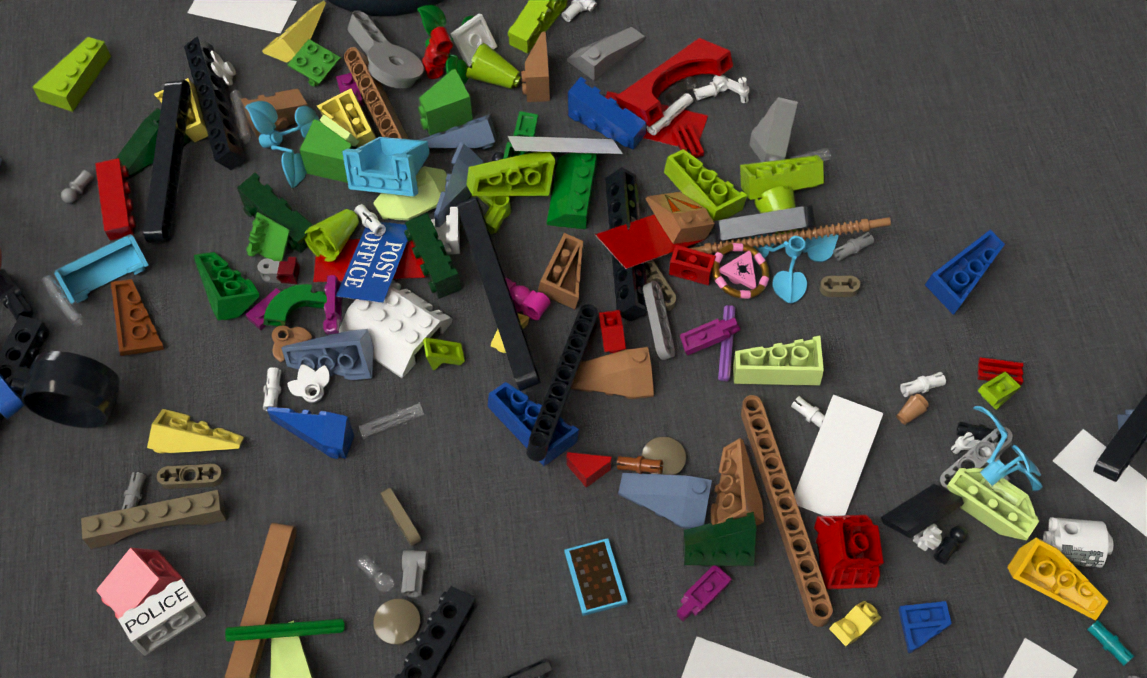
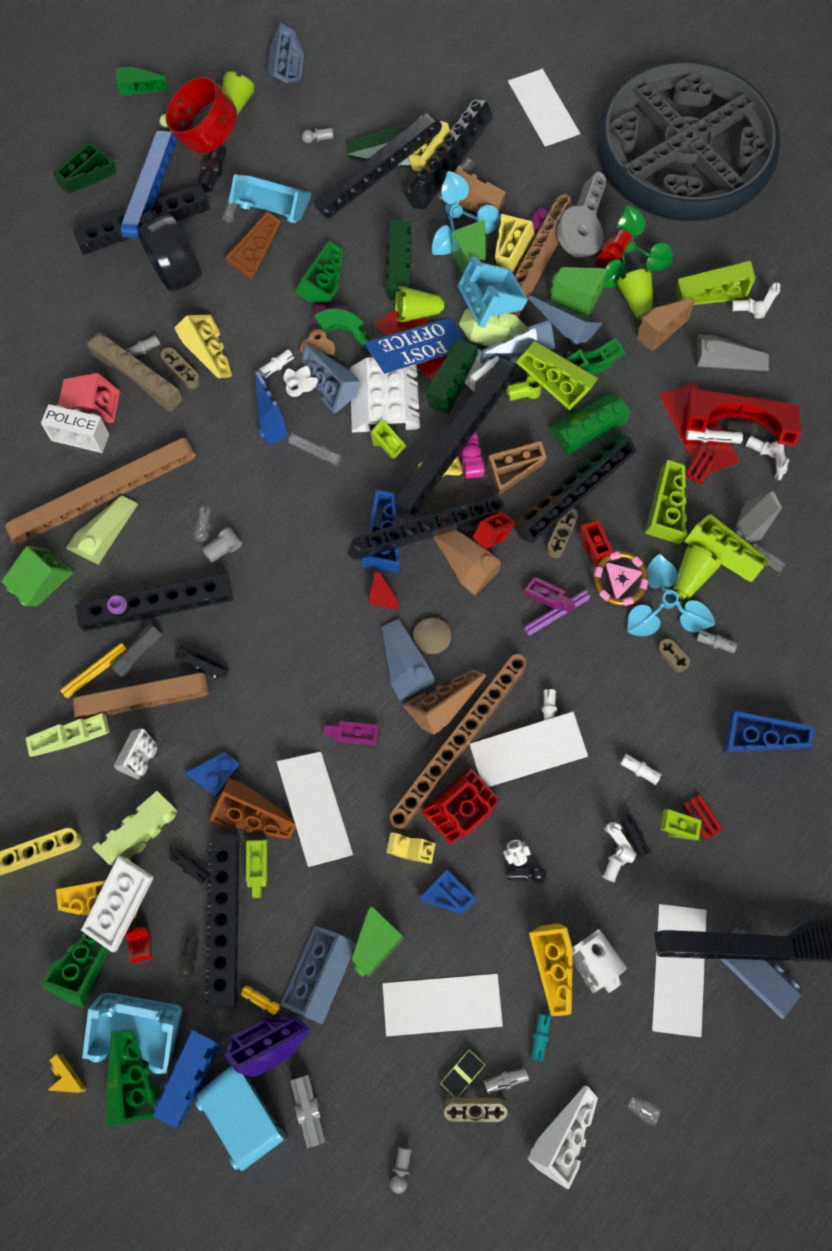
camera: 50 degrees right, 10 degrees up
(73, 75) = (395, 60): lime wedge -> none
(114, 199) = (326, 162): red brick -> none
(223, 69) = (478, 136): white plate -> none
(267, 238) = (375, 269): bright green hinge -> none
(279, 271) = (363, 300): leg -> none
(284, 630) = (122, 502): green axle -> none
(292, 40) = (545, 158): light yellow wedge -> none
(313, 62) = (537, 183): bright green hinge -> none
(333, 307) = (357, 348): magenta hinge -> none
(339, 130) = (491, 242): yellowish green tile -> none
(375, 226) = (447, 318): white pin -> none
(396, 621) = (183, 562): dark tan dish -> none
(400, 517) = (252, 508): dark tan beam -> none
(471, 35) = (652, 258): white plate -> none
(553, 144) = (615, 387): white sticker -> none
(595, 577) = (309, 657): tile -> none
(604, 115) = (668, 394): blue wedge -> none
(640, 243) = (590, 498): red sticker -> none
(640, 464) = (411, 624): dark orange pin -> none
(659, 320) = (533, 556): light grey beam -> none
(681, 217) = (629, 506): medium nougat slope -> none
(721, 544) = (393, 718): dark green wedge -> none
(764, 223) = (671, 565): beam -> none
(780, 365) = (568, 659): yellowish green wedge -> none
(865, 225) = (731, 633): medium nougat hose -> none
(914, 407) = (612, 775): medium nougat cone -> none
(922, 510) = (532, 835): black tile -> none
(974, 457) = (607, 843): light grey beam -> none
(997, 470) = (611, 869): medium azure plant -> none
(997, 506) = (582, 880): yellowish green wedge -> none

